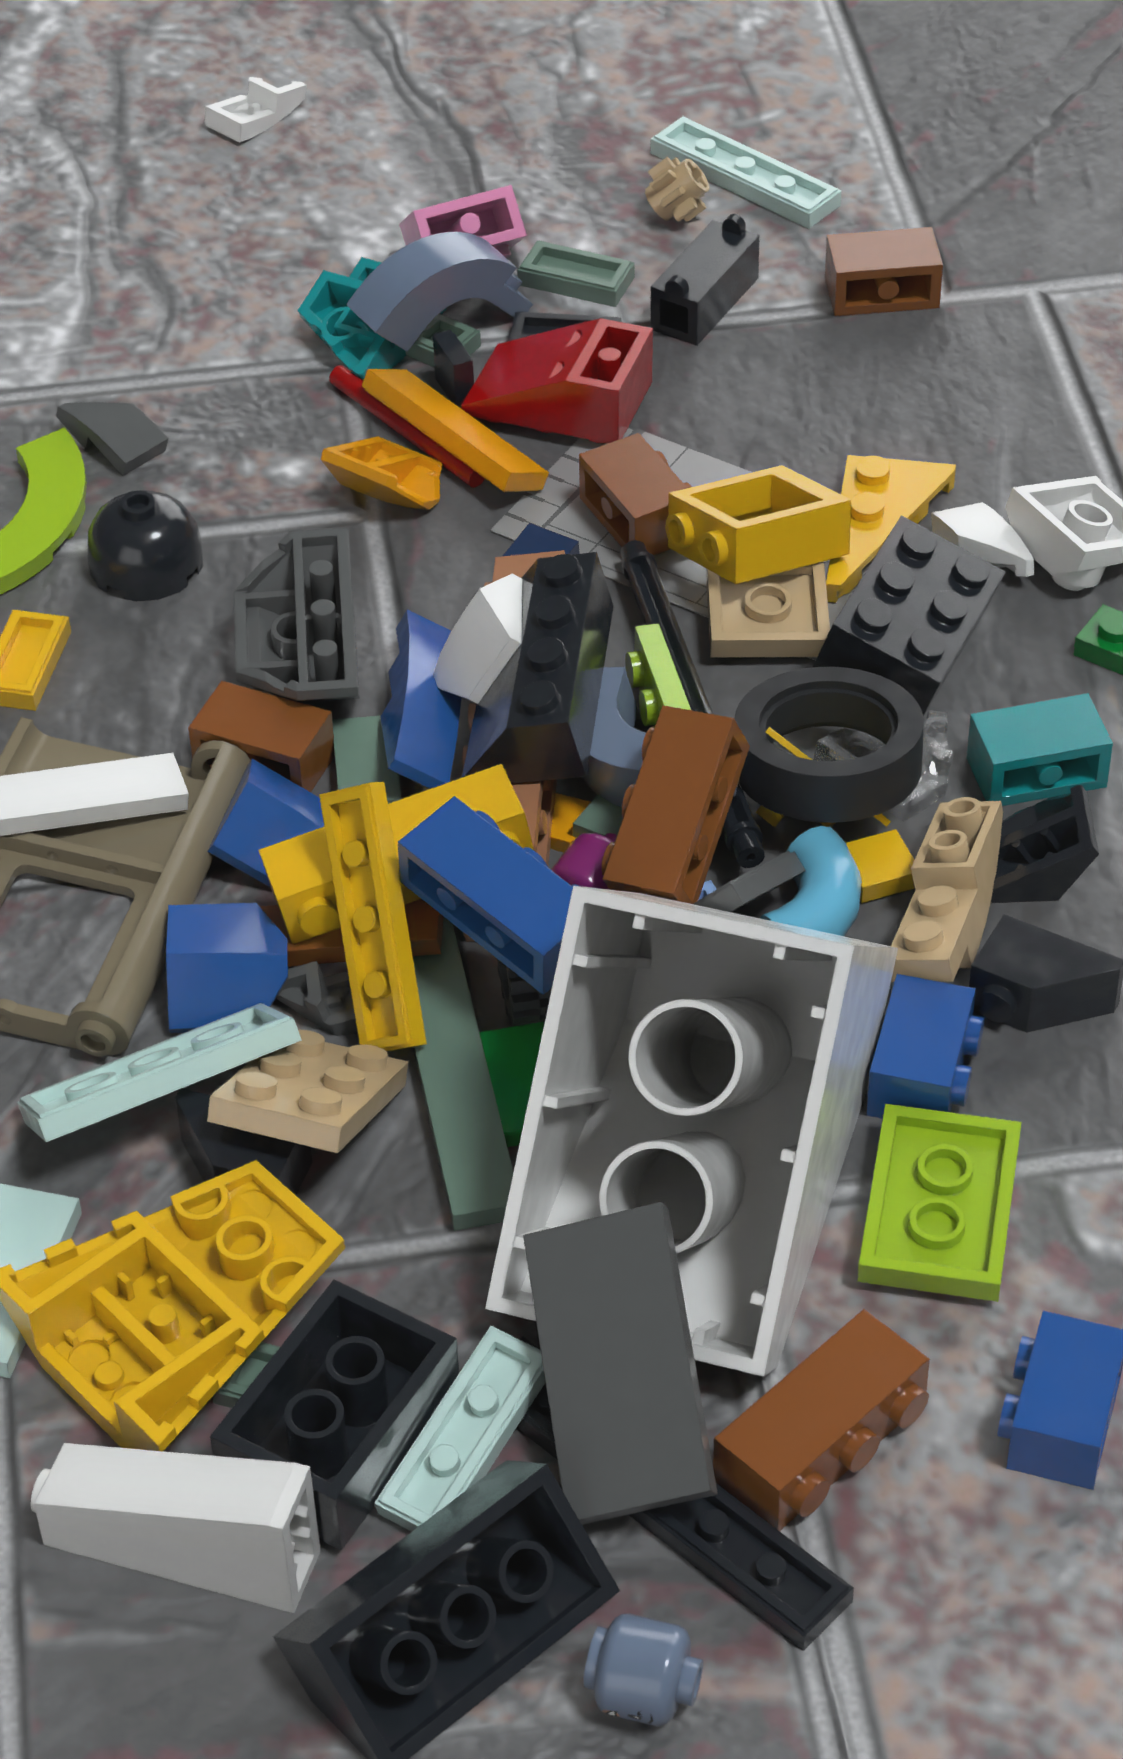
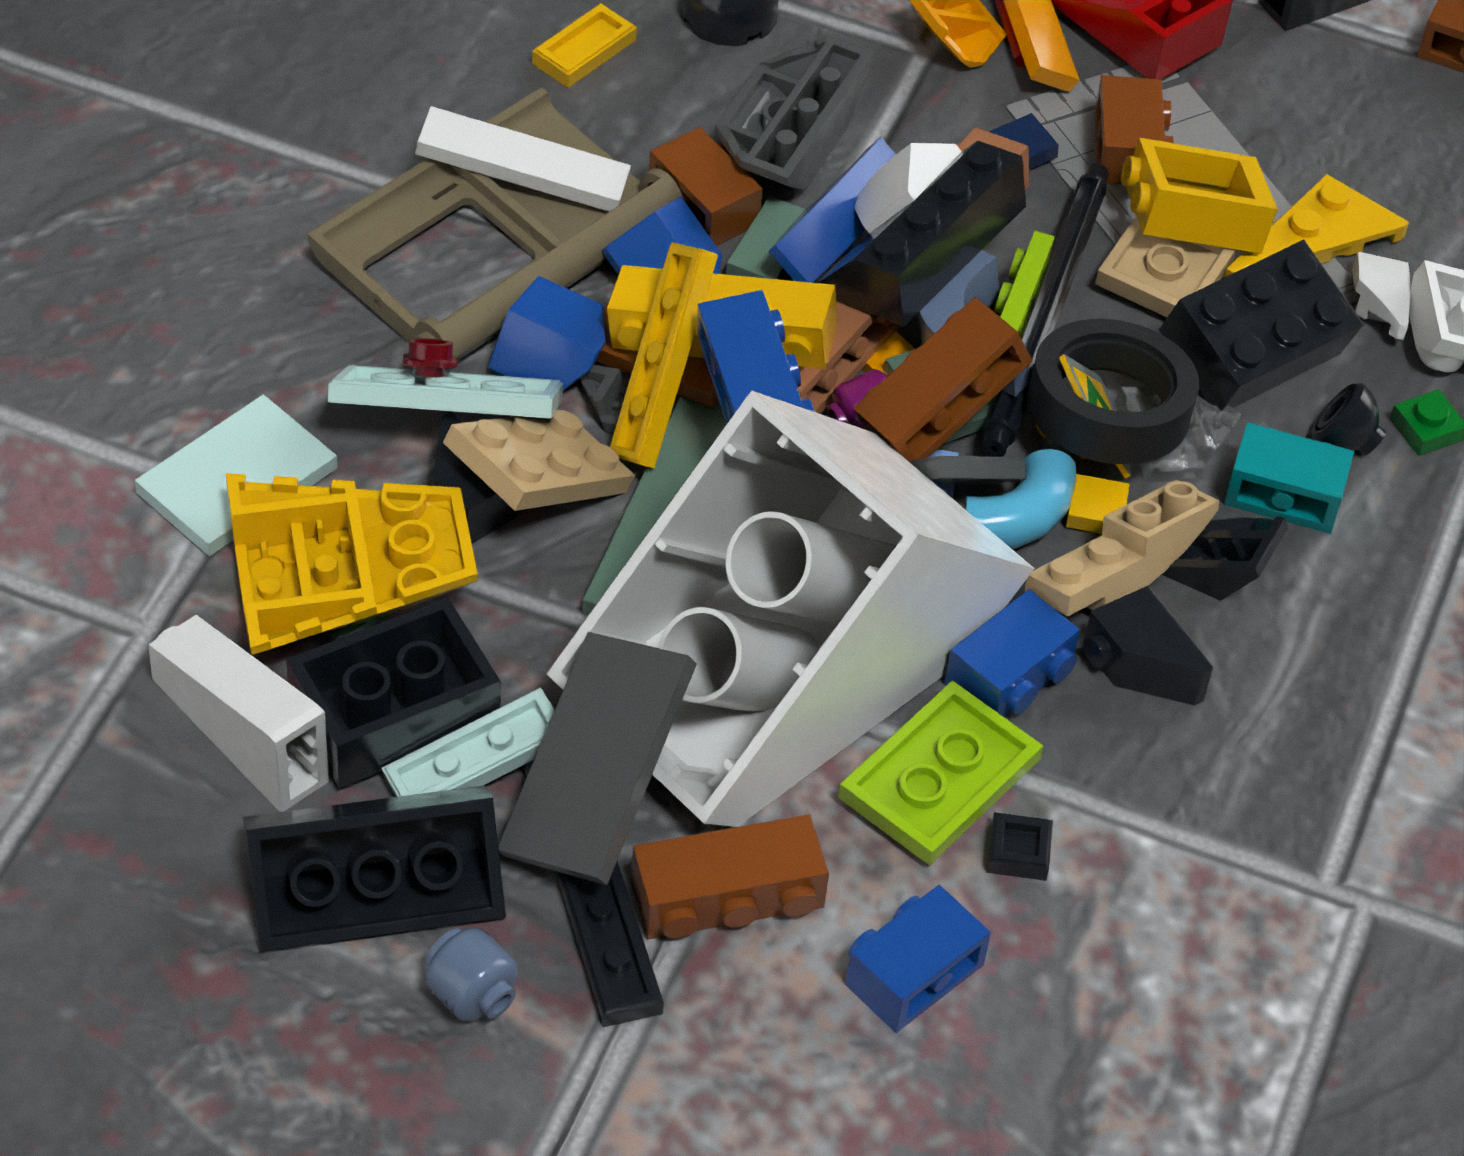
camera: 25 degrees right, 5 degrees up
(114, 1043) = (430, 357): none -> dark red plate
(1050, 668) = (1350, 420): none -> black brick
(1067, 1235) = (1020, 846): none -> black tile

